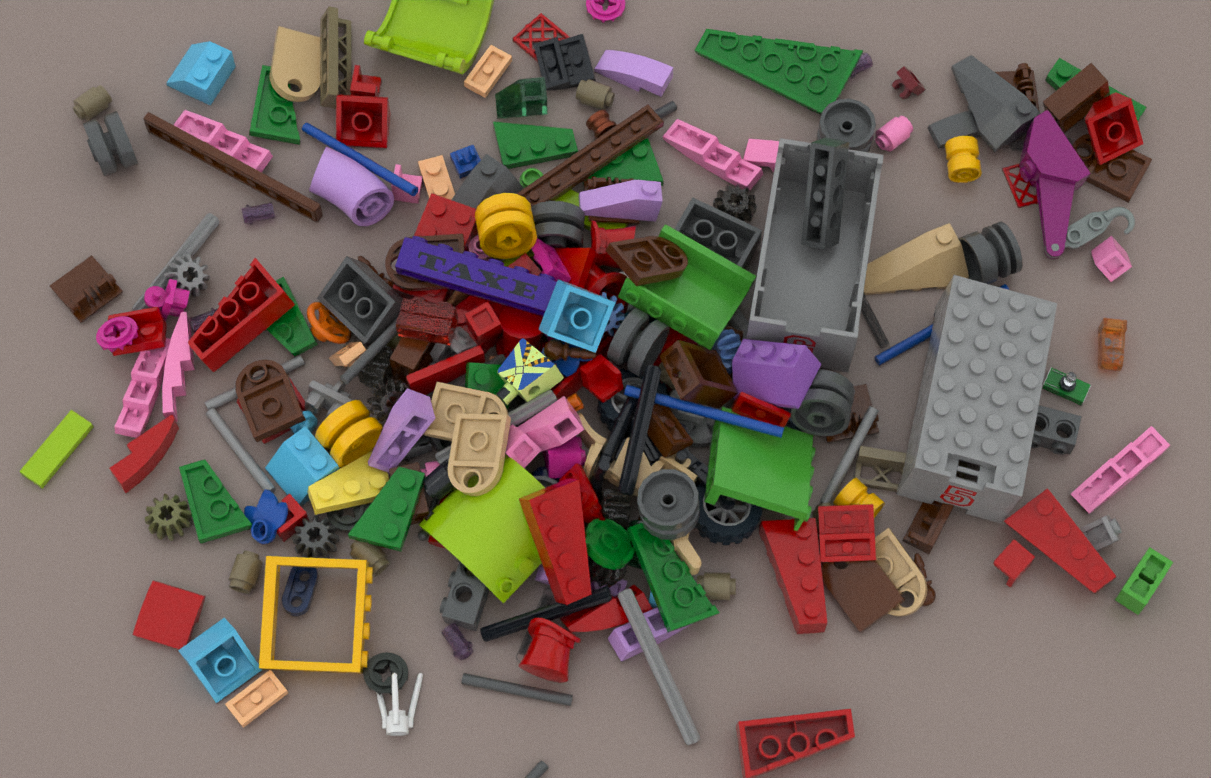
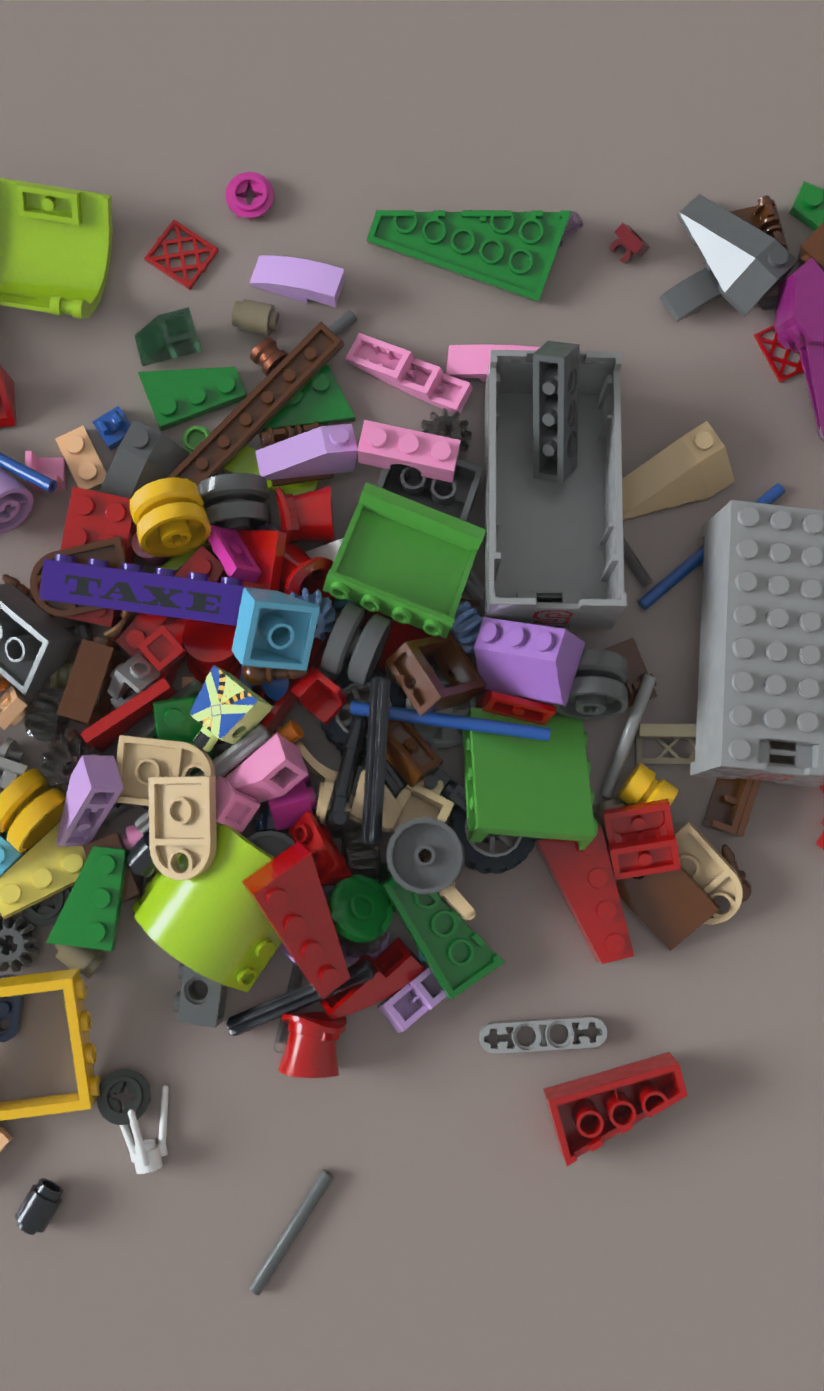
camera: 10 degrees left, 15 degrees up
(301, 747) = (39, 1207): none -> black brick
(369, 354) = (41, 694): dark grey bar -> none
(427, 321) = (92, 661): clear red brick -> none
(457, 641) = (202, 1043): clear purple pin -> none
(488, 71) = (121, 306): light nougat plate -> none
(517, 689) = (281, 1087): dark grey bar -> none
(564, 62) = (211, 280): black slope -> none
(648, 259) = (350, 538): reddish brown tile -> none
(658, 666) = (442, 1040): light grey axle -> none
(717, 585) = (495, 923): dark tan brick -> none
(721, 210) = (388, 445): none -> bright pink arch
(742, 677) = (542, 1034): none -> light grey beam
(849, 122) = (565, 313): dark grey wheel -> none
(893, 133) = (621, 311): bright pink brick -> none
(962, 159) = (709, 332): yellow wheel -> none
(991, 253) = (762, 452): dark grey wheel -> none

